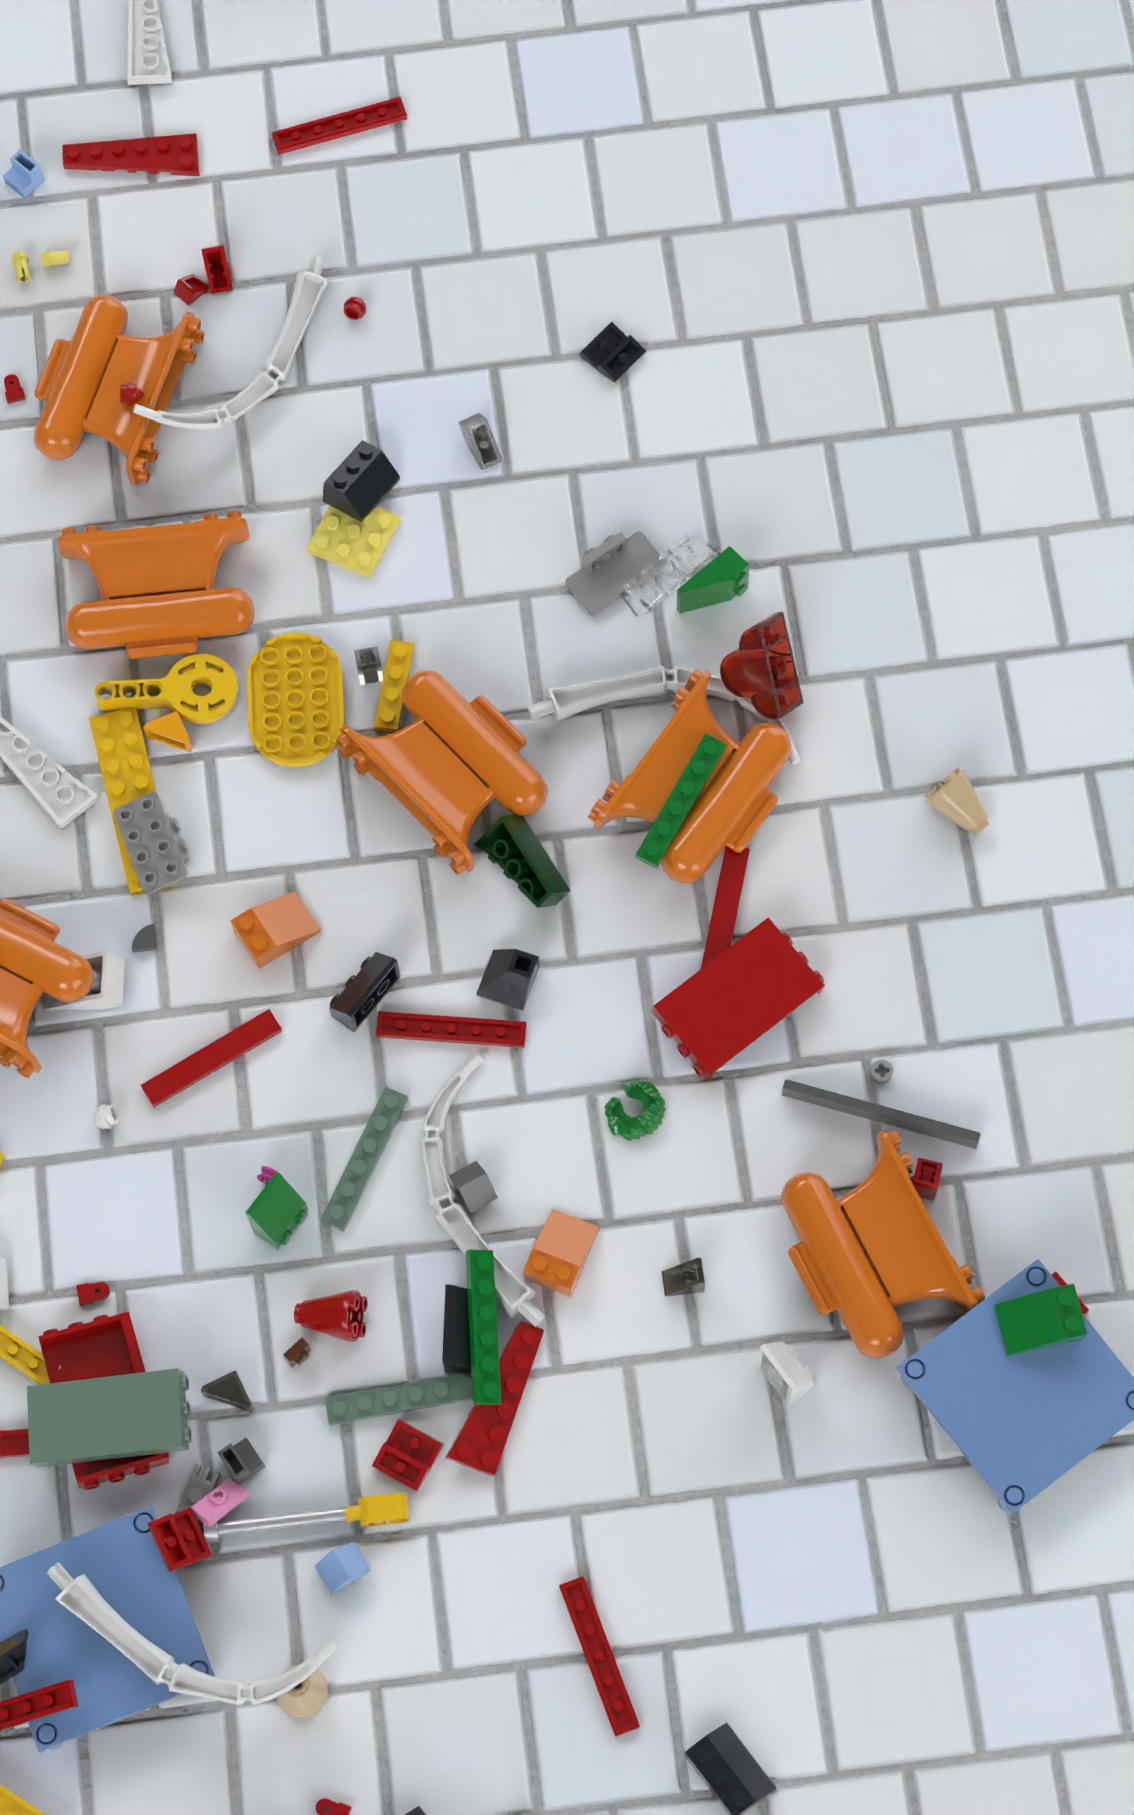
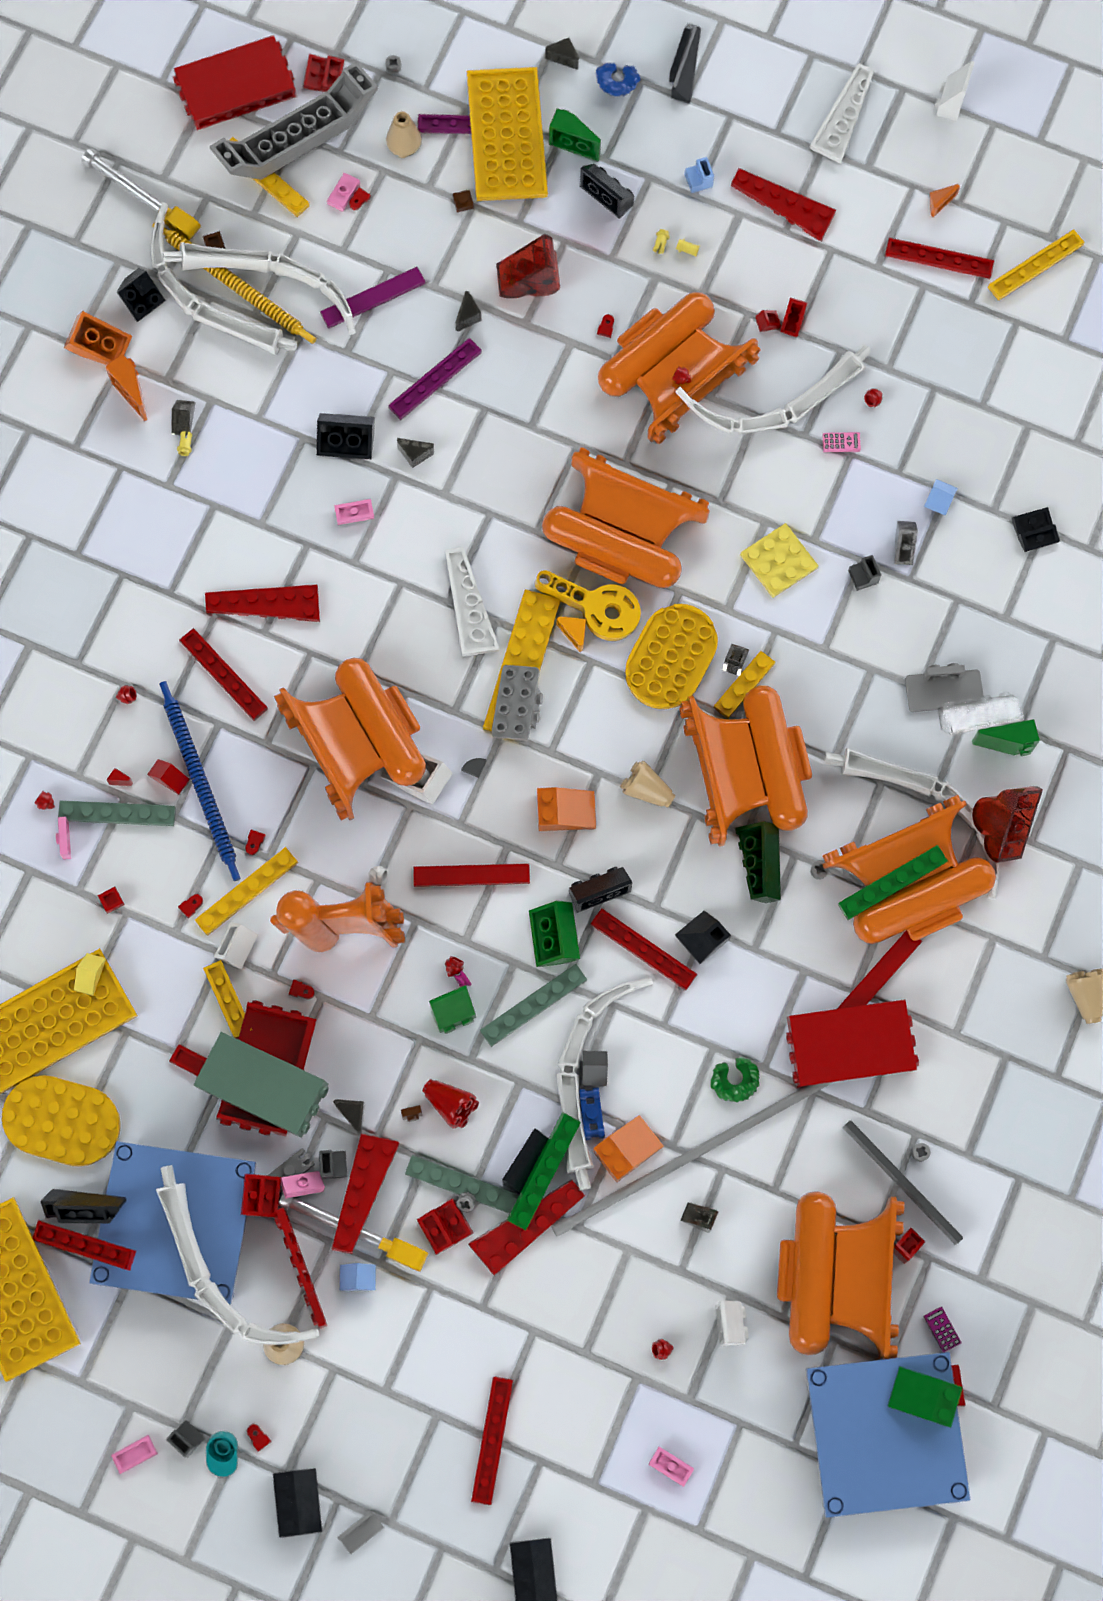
camera: 25 degrees right, 5 degrees up
(71, 1197) = (321, 925): none -> orange piece
(250, 1167) = (453, 966): none -> red plate
(288, 1452) = (367, 1175): none -> red wing
(303, 1621) = (297, 1260): none -> red wing
(304, 61) = (942, 197): none -> orange slope
(342, 1068) = (554, 934): none -> green slope
(347, 373) = (841, 442): none -> bright pink tile
(351, 851) = (647, 786): none -> tan cone
(360, 481) = (804, 526): black slope -> none
(410, 1411) = (463, 1198): none -> light grey bush
(448, 78) = (1036, 265): none -> yellow plate
(456, 496) = (865, 573): none -> dark grey piece
(490, 373) = (940, 497): none -> light blue piece
(499, 1237) = (591, 1113): none -> blue plate
(544, 1370) = (568, 1223): none -> light grey piece
(588, 840) = (814, 872): none -> light grey bush
(727, 1445) = (661, 1349): none -> red plate
(812, 1565) = (671, 1466): none -> bright pink plate
(1016, 1244) = (942, 1329): none -> magenta tile

